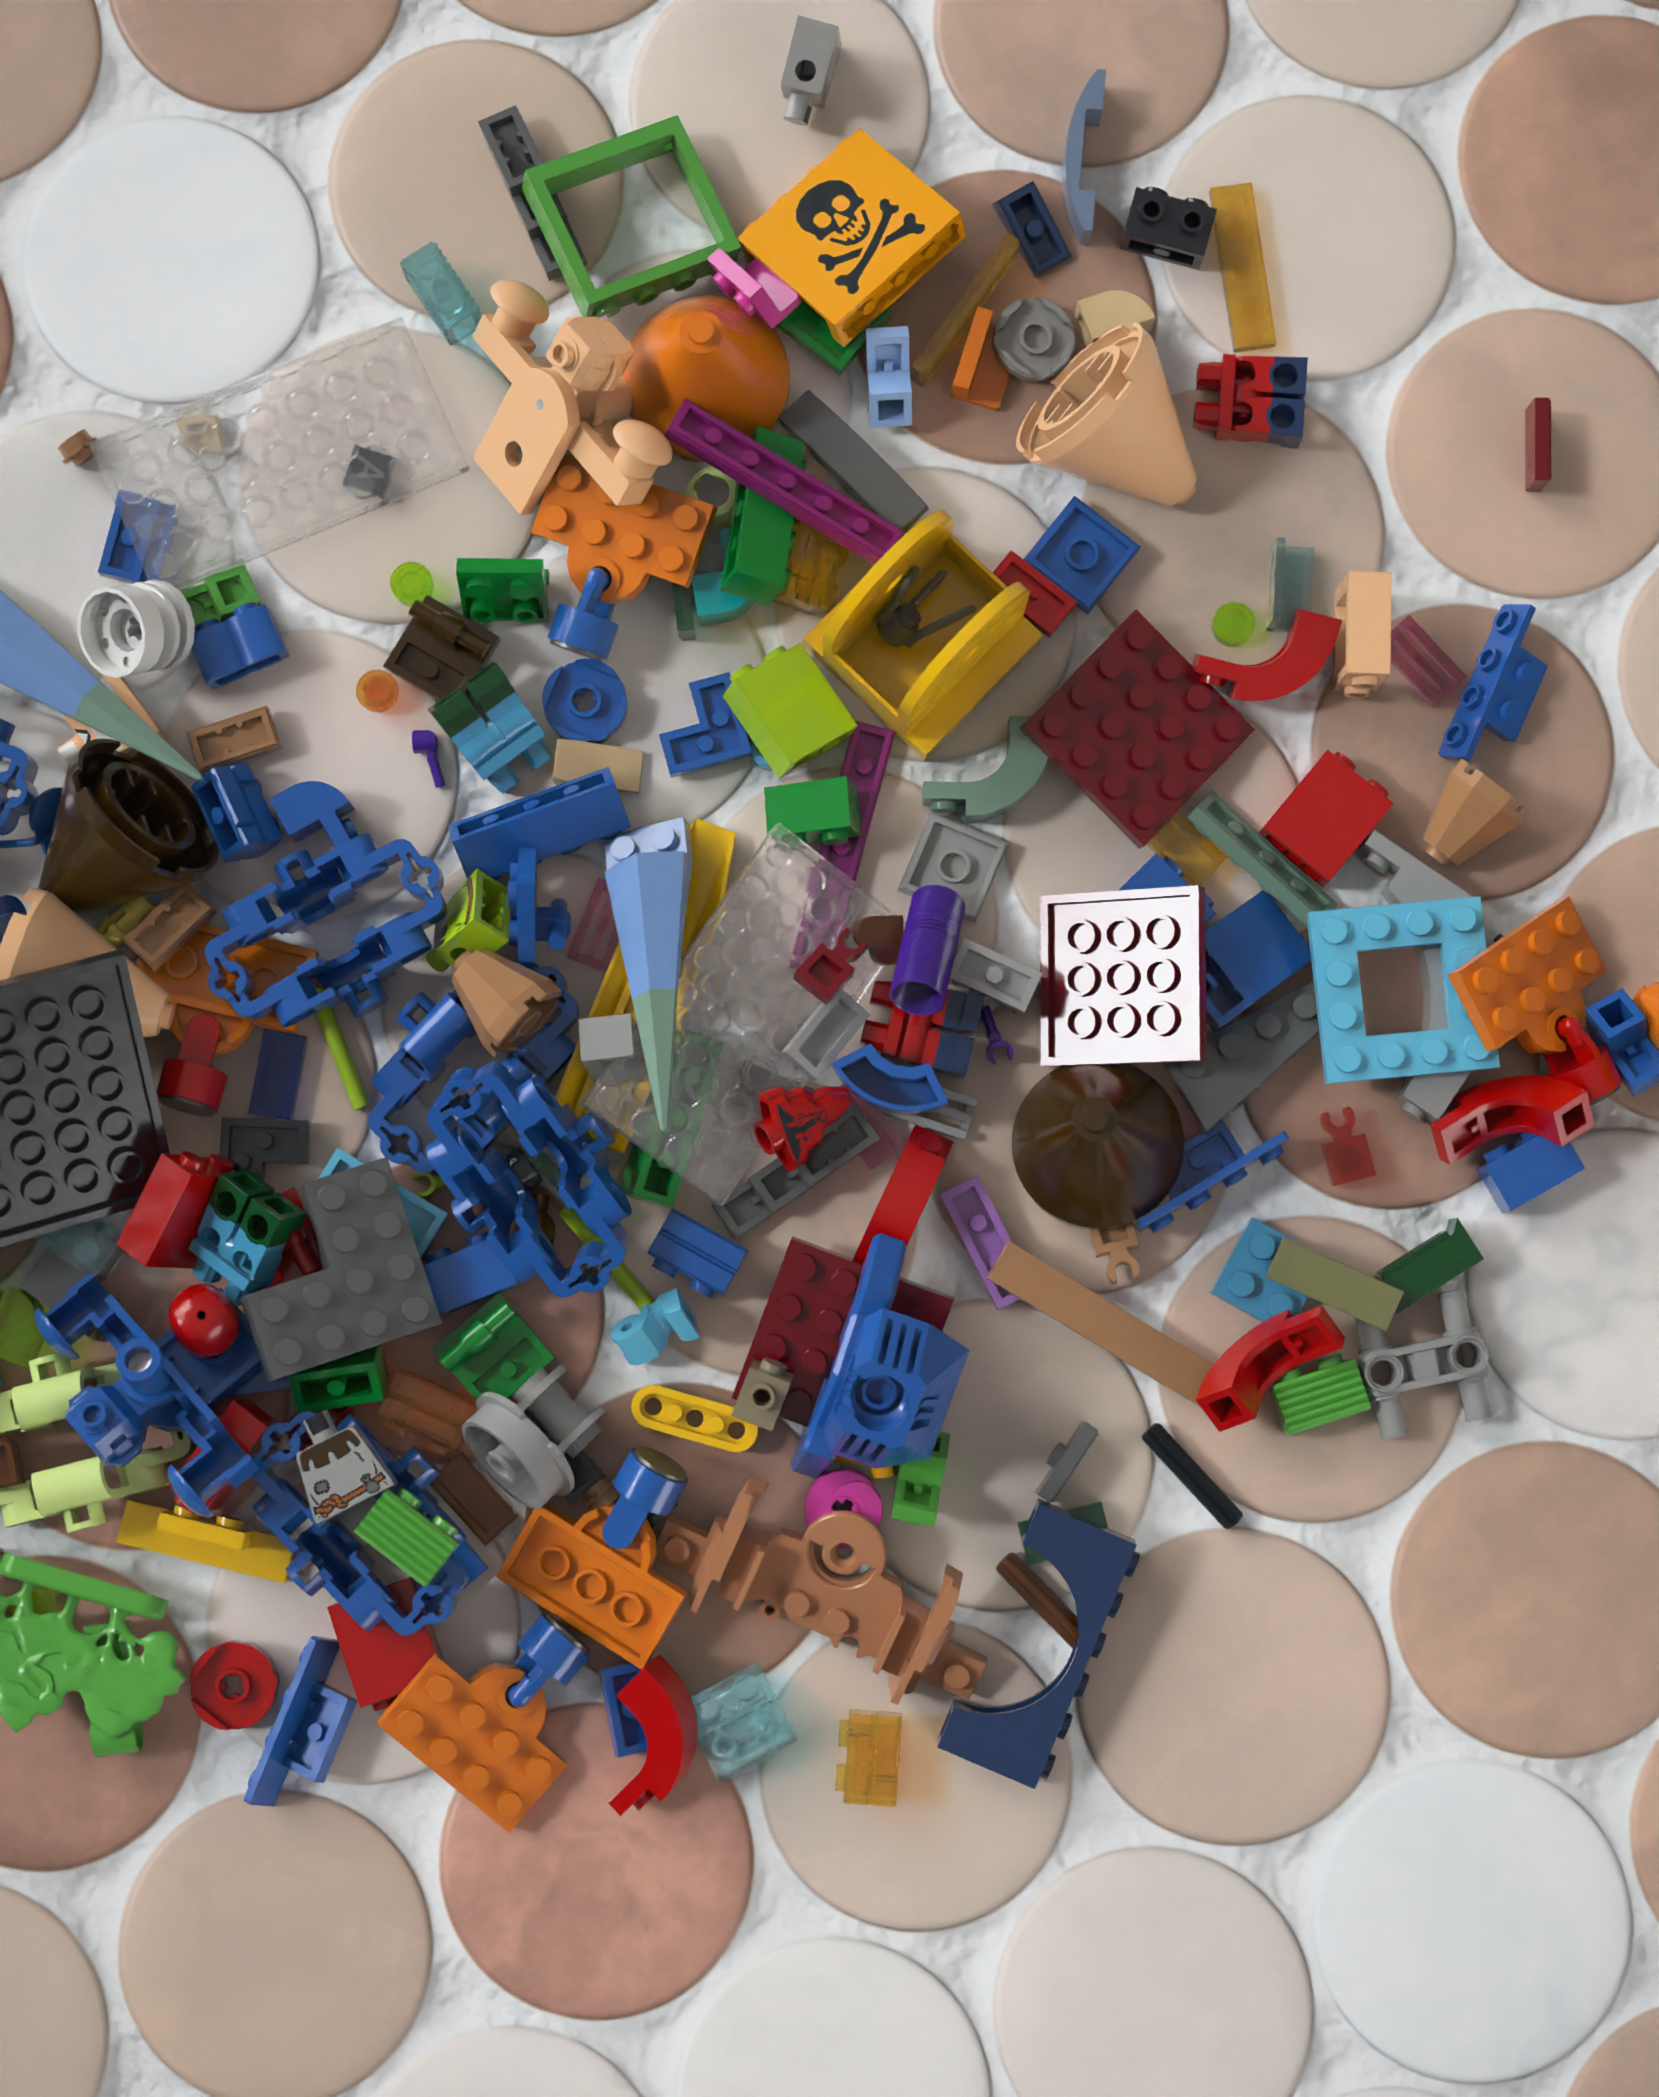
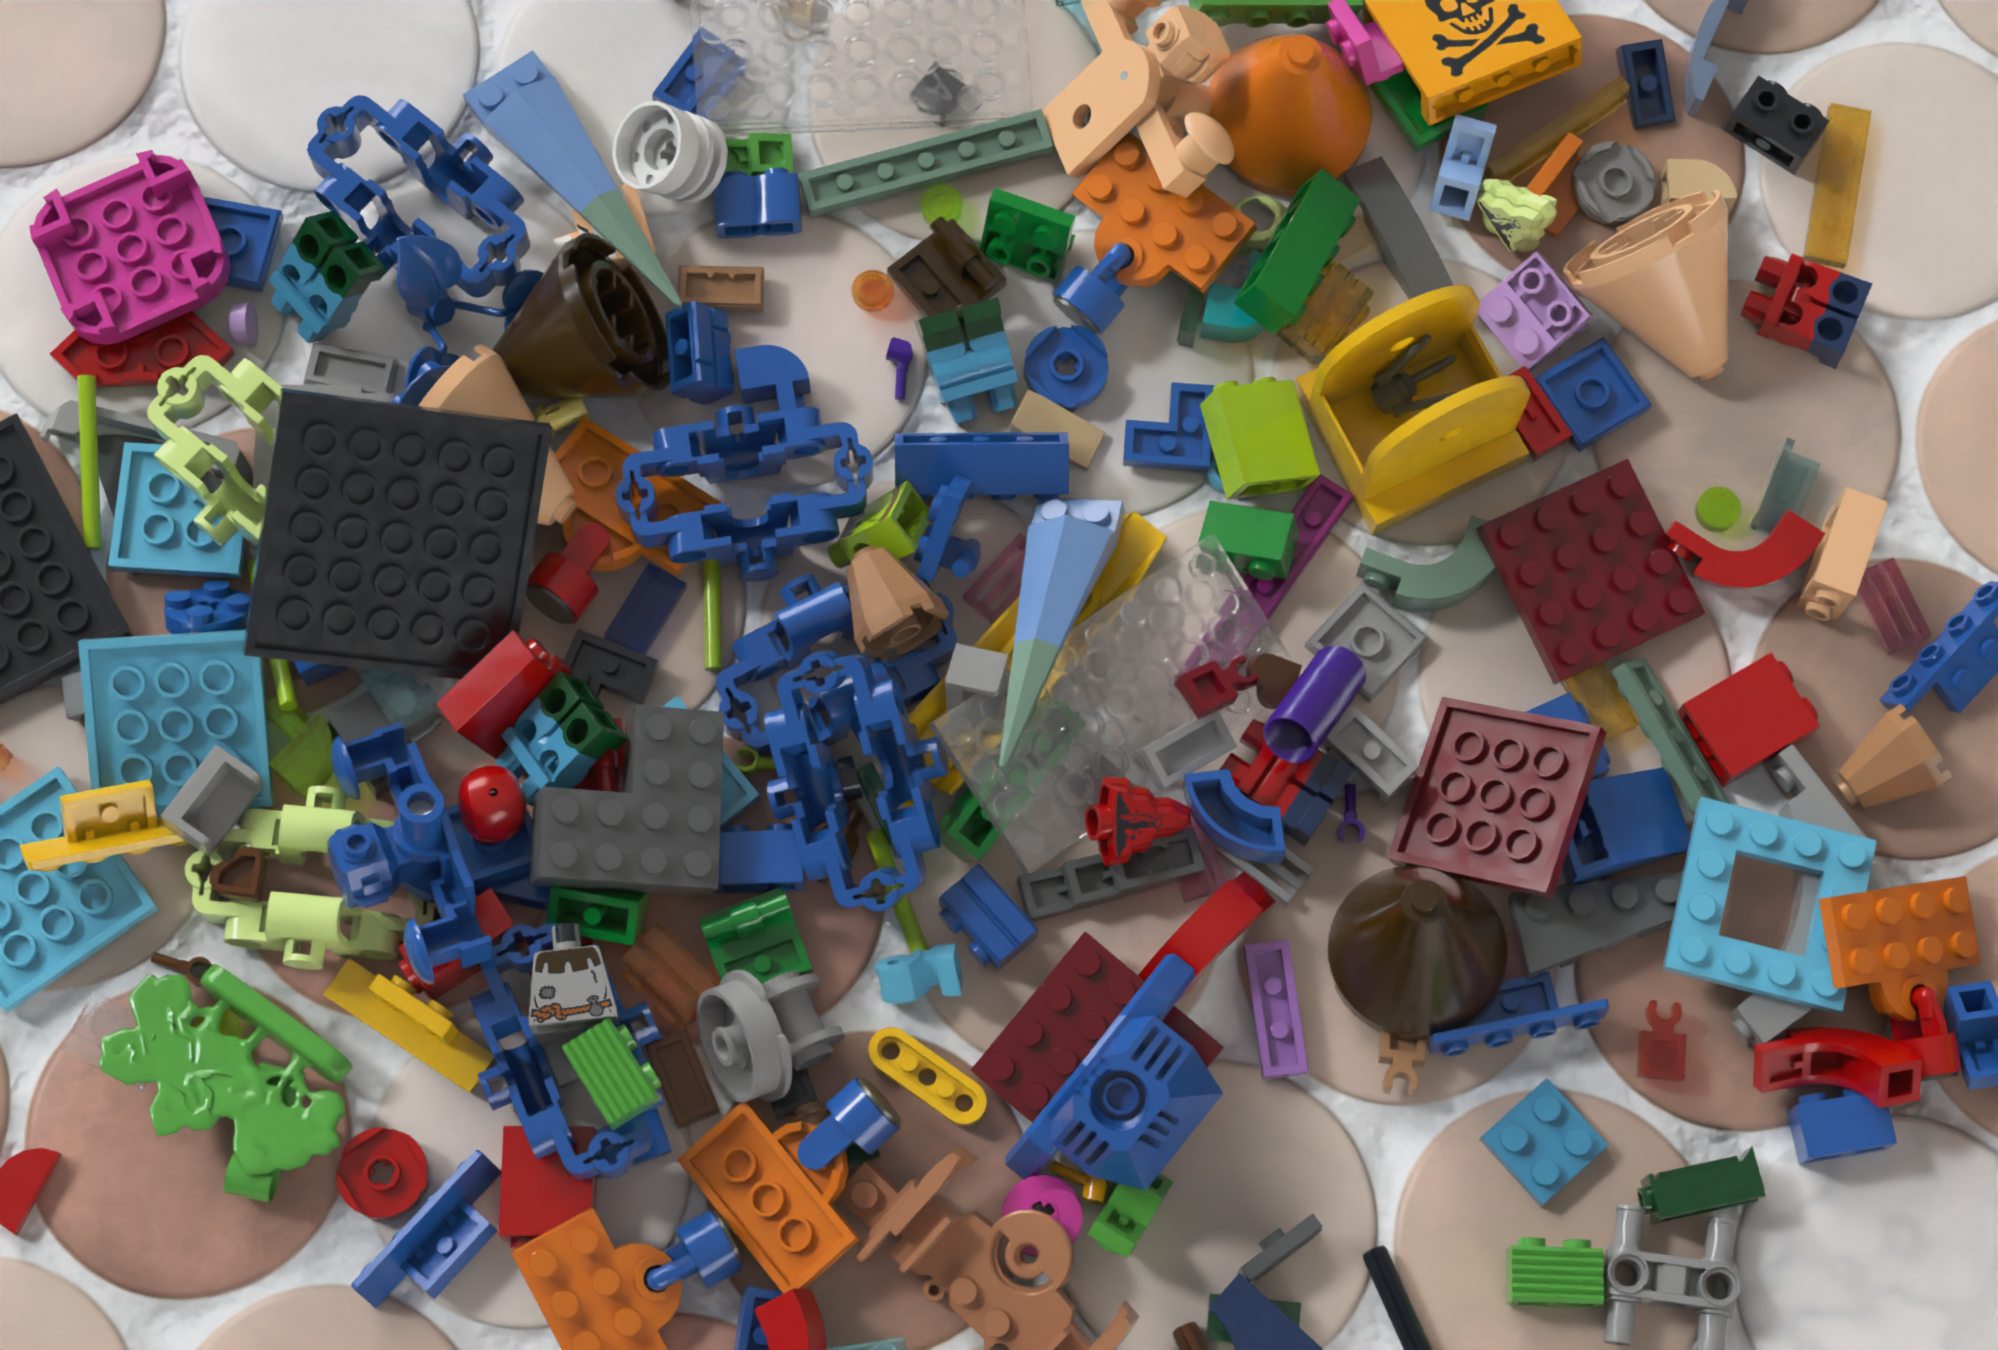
camera: 20 degrees right, 10 degrees down
(169, 926) = (597, 433): medium nougat plate -> none
(382, 547) = (925, 163): none -> sand green plate
(763, 1393) = (1004, 1069): dark tan brick -> none
(782, 482) = (1321, 217): magenta tile -> none
(953, 404) = (1515, 213): none -> yellowish green rock
(1001, 494) = (1534, 311): none -> lavender plate
(1099, 1321) = (1367, 1131): medium nougat tile -> none
(1259, 1358) = (1509, 1215): red arch -> none
(1334, 1283) = (1607, 1166): olive tile -> none

